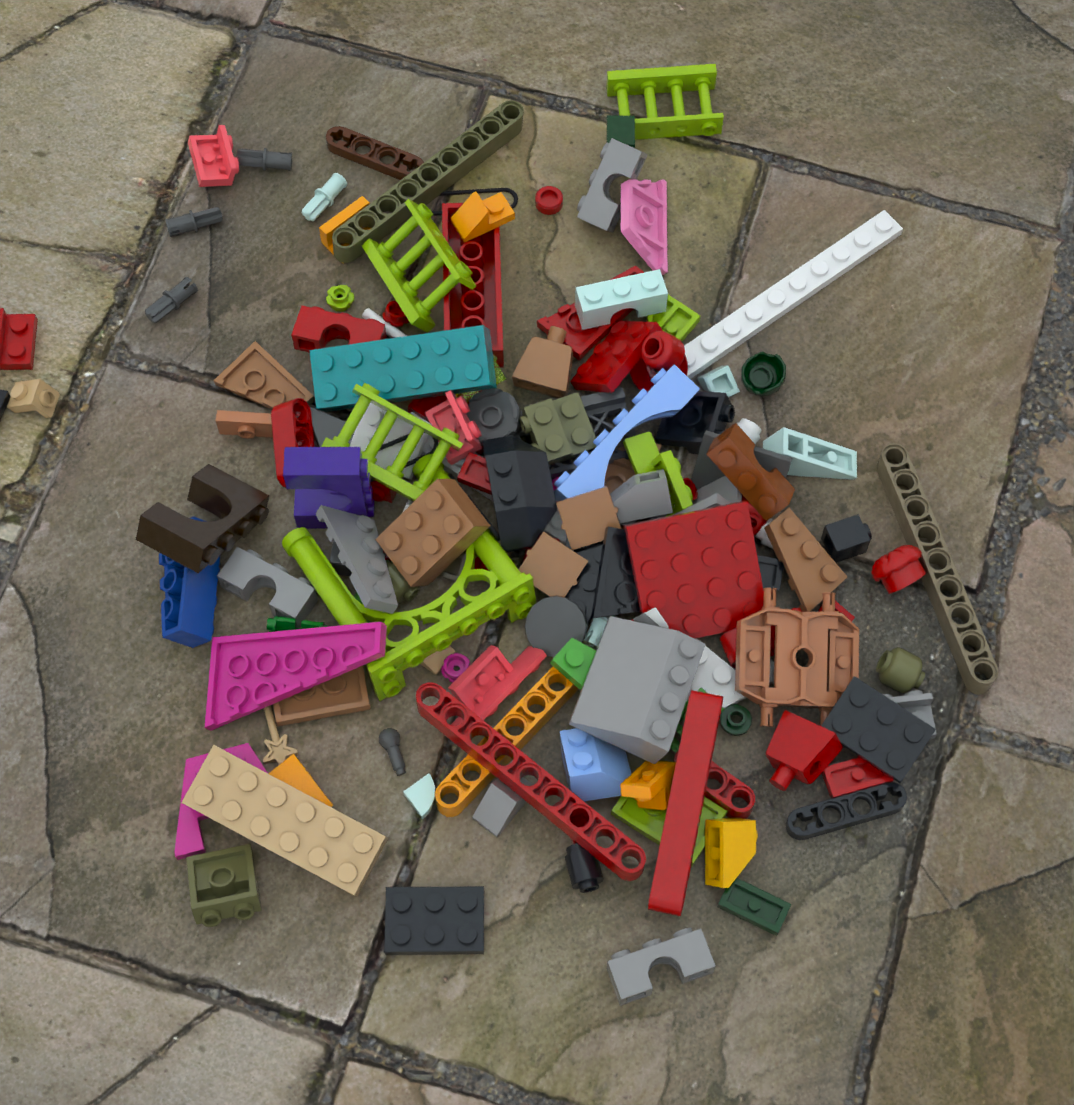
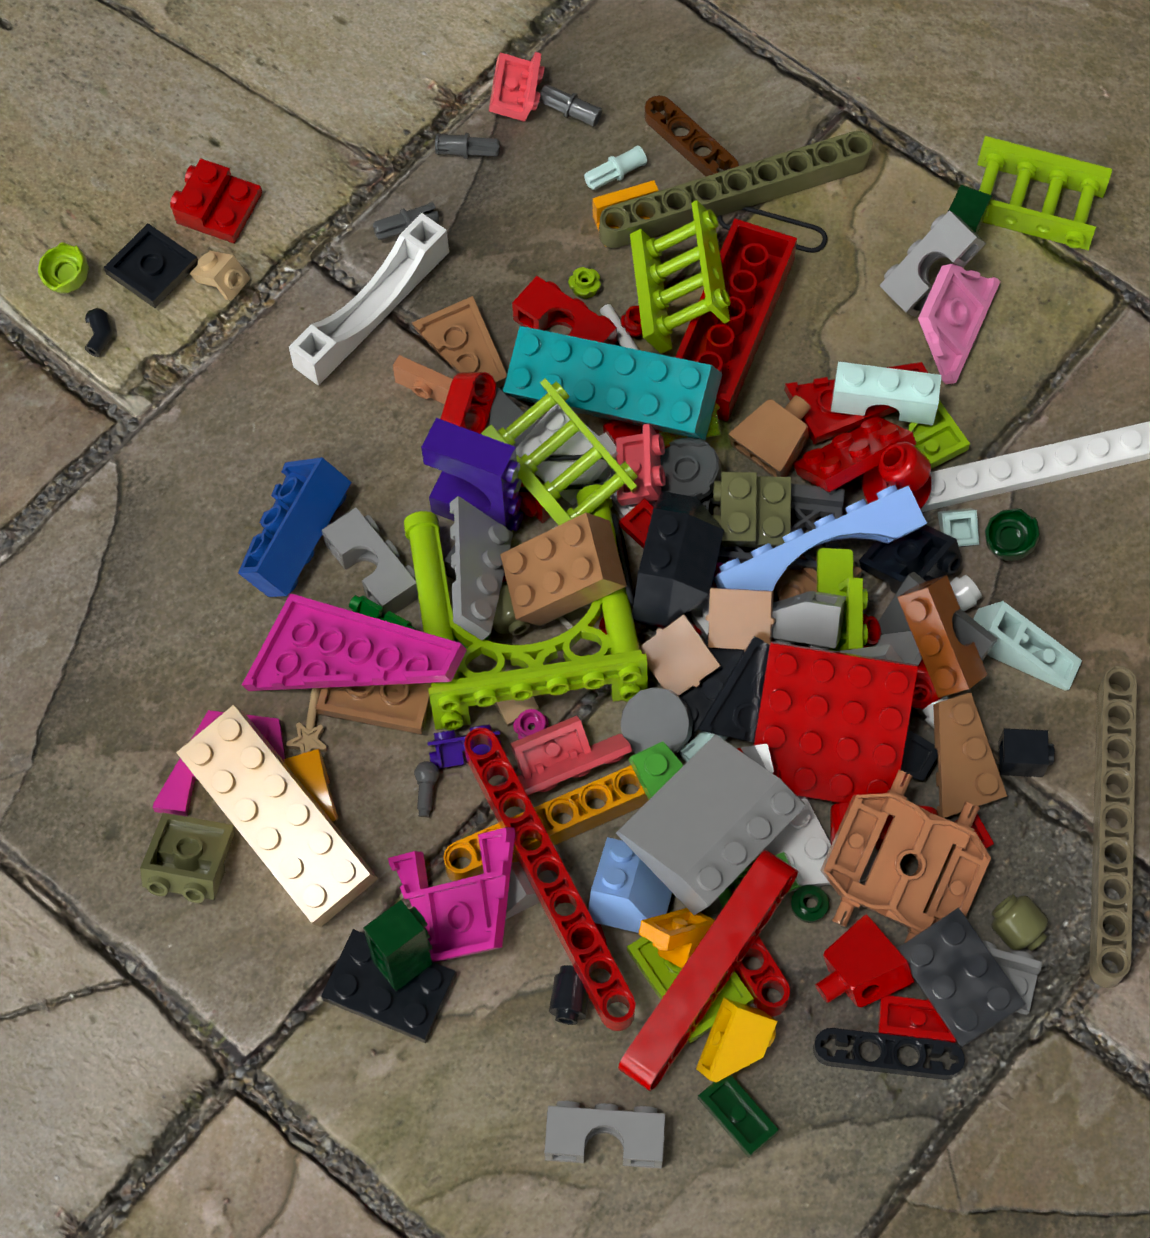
camera: 25 degrees right, 0 degrees up
(157, 412) = (331, 340): none -> white arch
(202, 542) = (314, 488): dark brown arch -> none
(399, 710) = (450, 747): none -> dark purple hinge
(421, 795) = (434, 845): light aqua tile -> none
(437, 882) = (399, 944): none -> dark green brick
(472, 837) = (464, 913): none -> dark pink wing
(481, 216) = (769, 247): light orange slope -> none
(549, 200) = (859, 256): red tile -> none
(898, 568) = (1068, 808): red piece -> none

